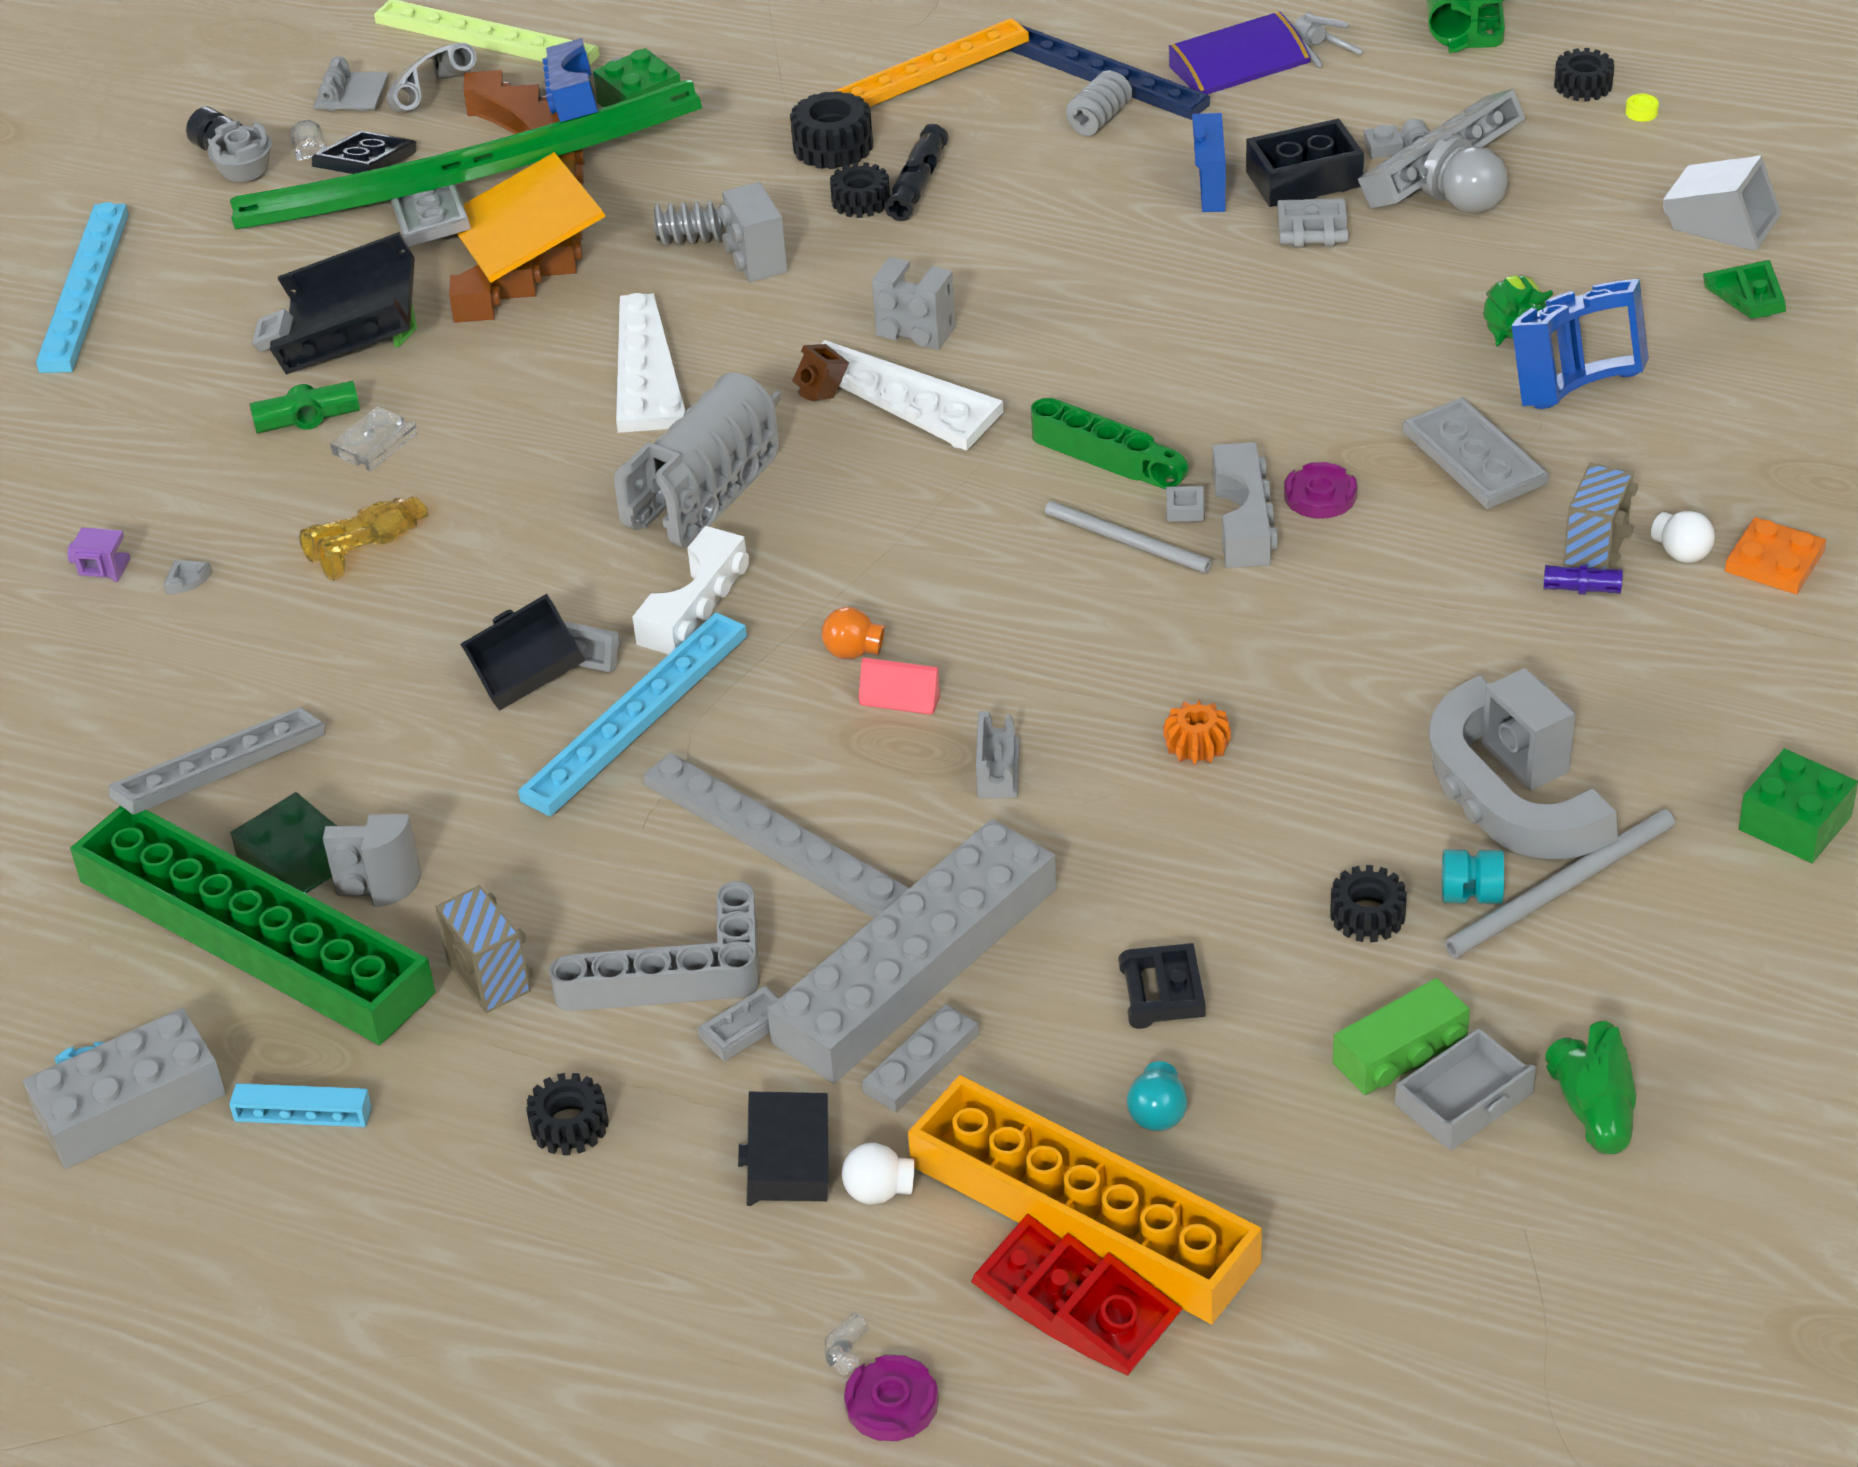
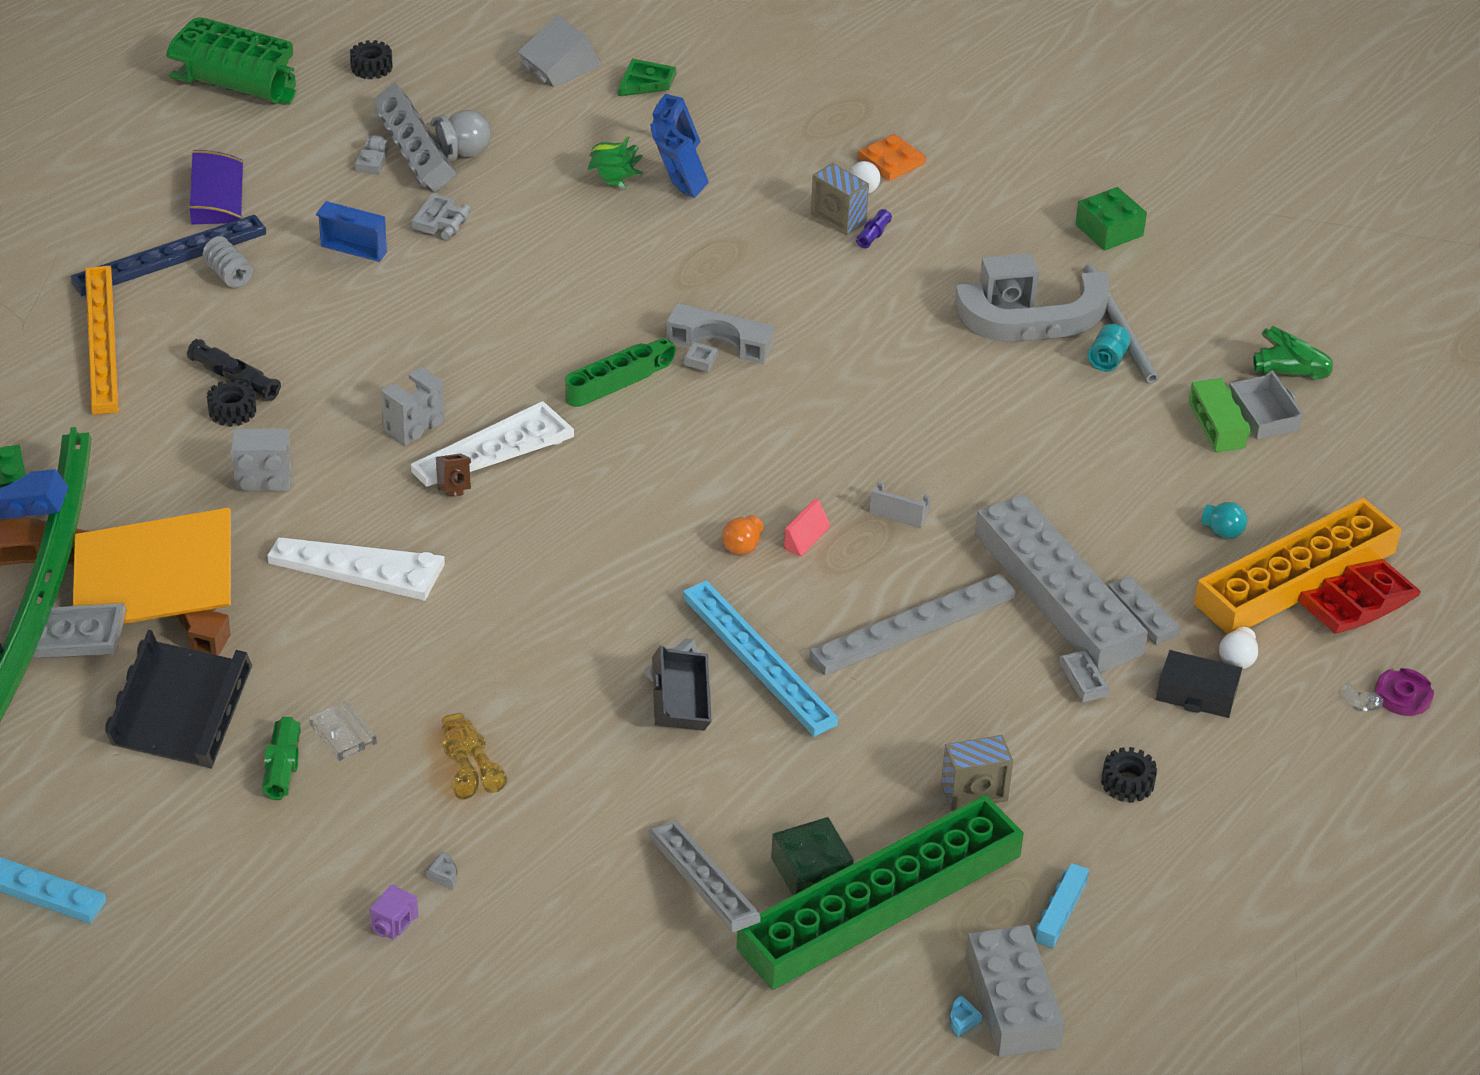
camera: 75 degrees left, 0 degrees up
(271, 328) = (162, 757): light grey plate -> none
(374, 858) = (860, 807): light grey brick -> none
(671, 617) = (628, 580): white arch -> none
(672, 972) = (1020, 662): light grey beam -> none
(688, 223) = (208, 492): light grey piece -> none
(701, 460) = (522, 551): light grey piece -> none
(831, 129) = (150, 393): black tyre -> none
(1128, 537) = (711, 393): light grey piece -> none
(1176, 982) = (1134, 487): black plate -> none
(1197, 732) = (925, 414): orange gear -> none
(1304, 162) = (385, 190): black brick -> none
(1312, 32) = (220, 145): light grey plant -> none
(1320, 490) = (720, 299): magenta tile -> none
(1368, 920) = (1094, 394): black tyre -> none
(1475, 453) = (729, 229): light grey plate -> none
(1642, 107) = (421, 52): neon yellow tile -> none

